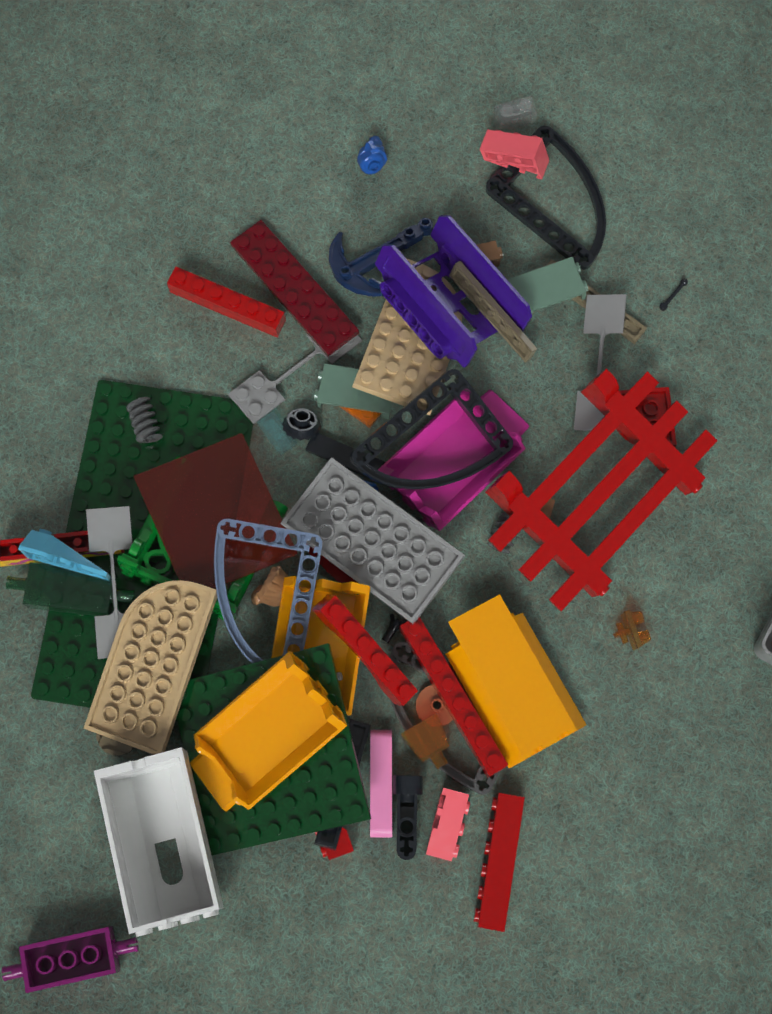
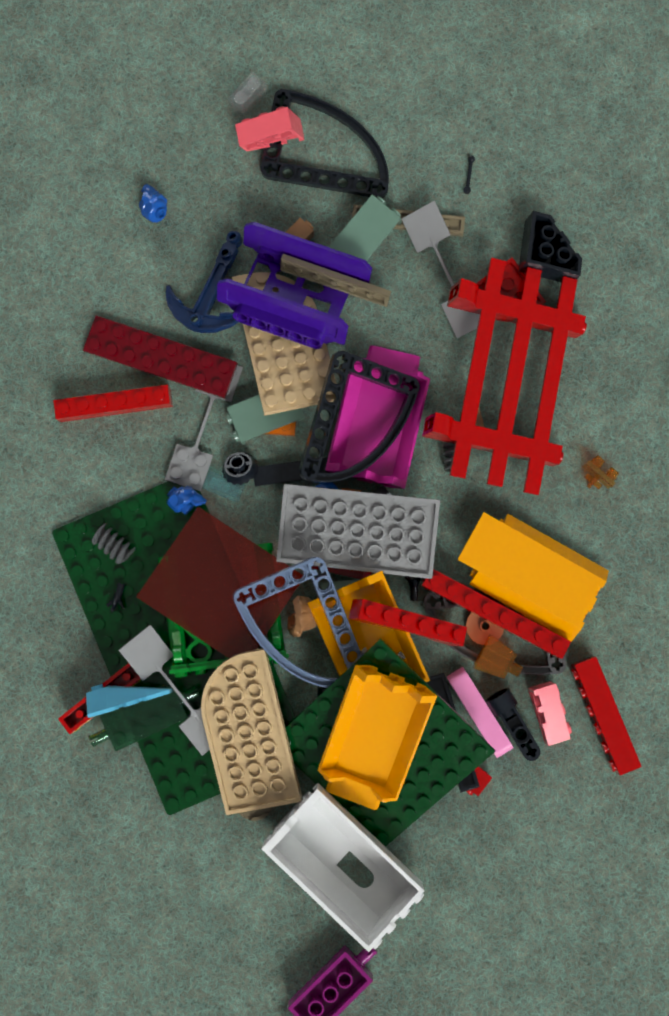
camera: 25 degrees left, 10 degrees up
(117, 471) = (117, 598): none -> black bar
(233, 420) = (184, 499): none -> blue head
(706, 398) = (548, 249): none -> black brick

